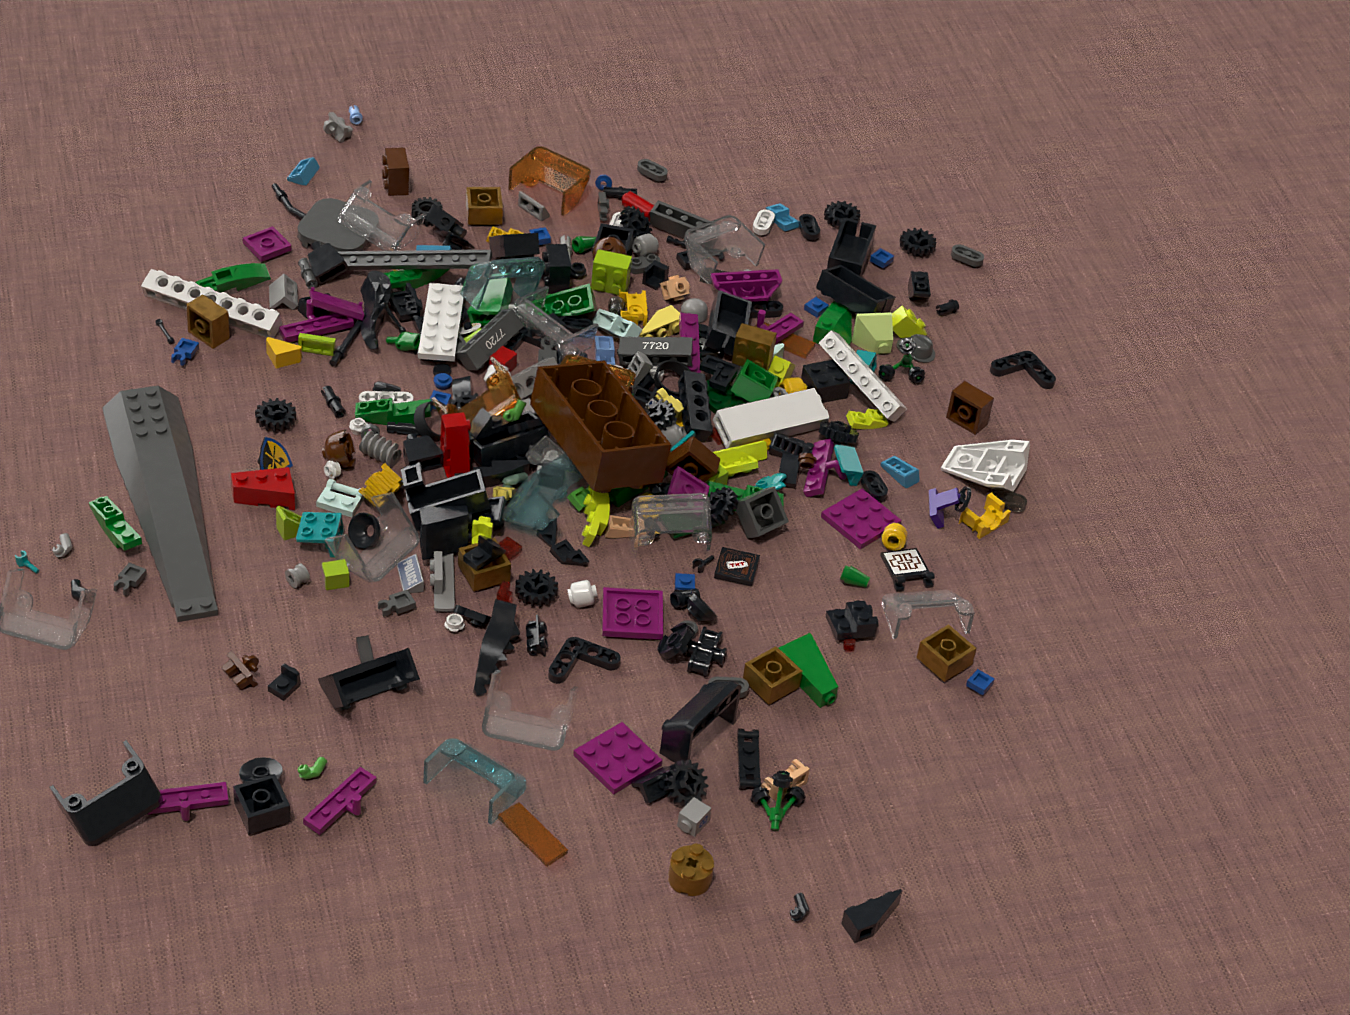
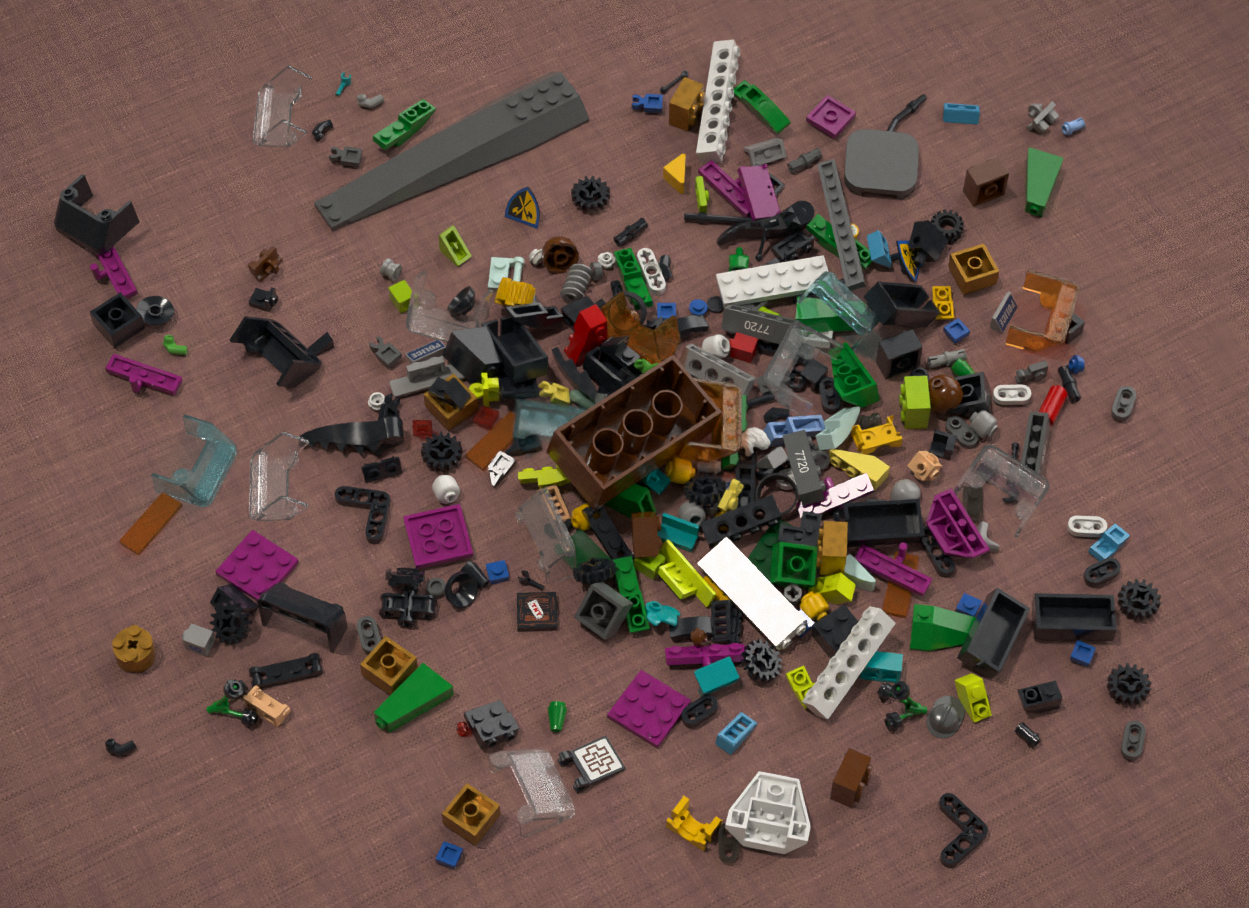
camera: 80 degrees right, 15 degrees up
(264, 487) = (490, 214): red wedge -> none
(318, 526) = (448, 271): teal bracket -> none
(326, 262) = (815, 165): black torso -> none
(376, 223) = (878, 198): clear windscreen -> none
(418, 150) = (1041, 176): none -> green slope
(468, 327) = (782, 308): piece -> none
(536, 550) = (494, 441): none -> clear orange piece
(634, 219) = (1018, 401): black gear -> none
(686, 483) = (600, 538): magenta plate -> none
(867, 918) = (120, 805): black slope -> none
(874, 332) = (937, 667): yellowish green slope -> none
(894, 536) = (626, 741): yellow head -> none
(939, 501) = (687, 776): piece -> none

